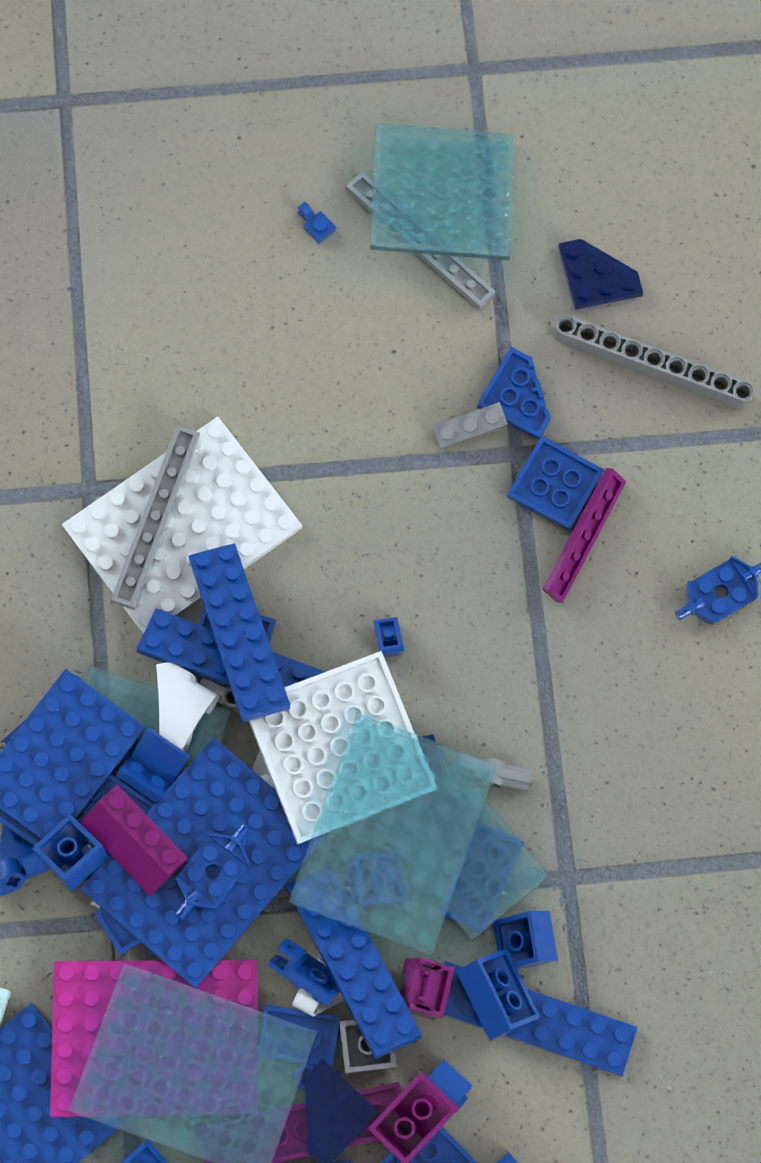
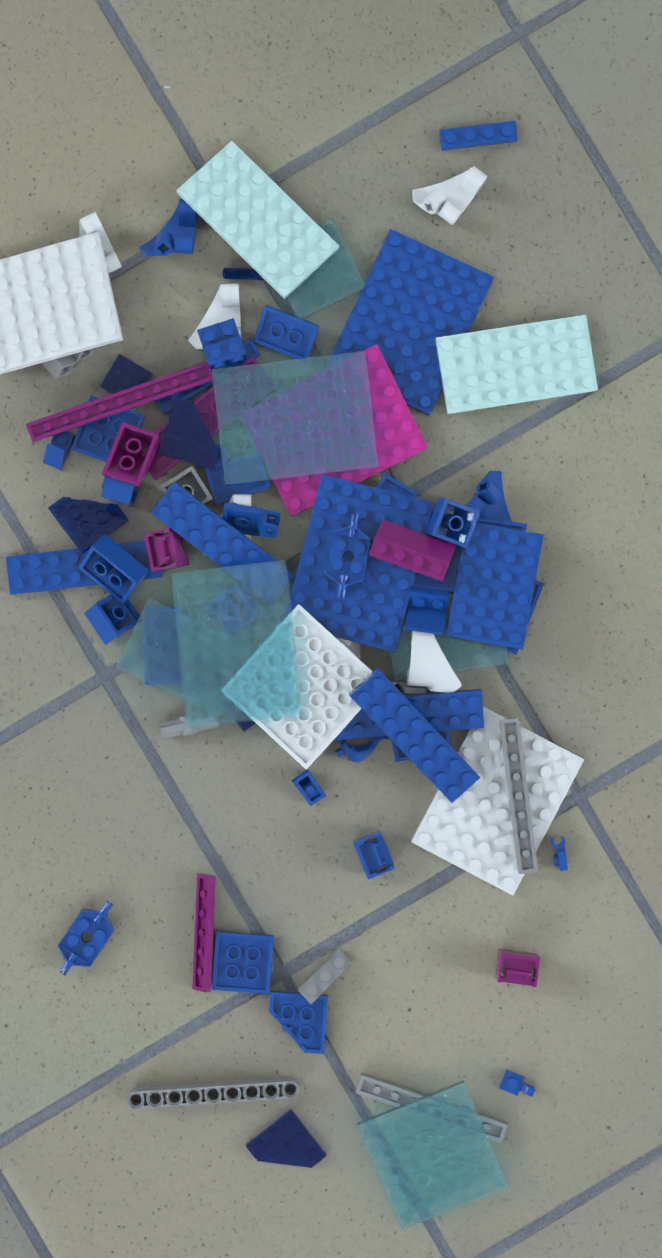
camera: 160 degrees right, 15 degrees up
(144, 431) = (560, 858): none -> blue plate
(249, 336) = (517, 967): none -> magenta piece
(314, 649) = (357, 753): none -> blue animal
(350, 528) = (374, 854): none -> blue piece
(504, 1071) = (87, 520): none -> clear blue plate

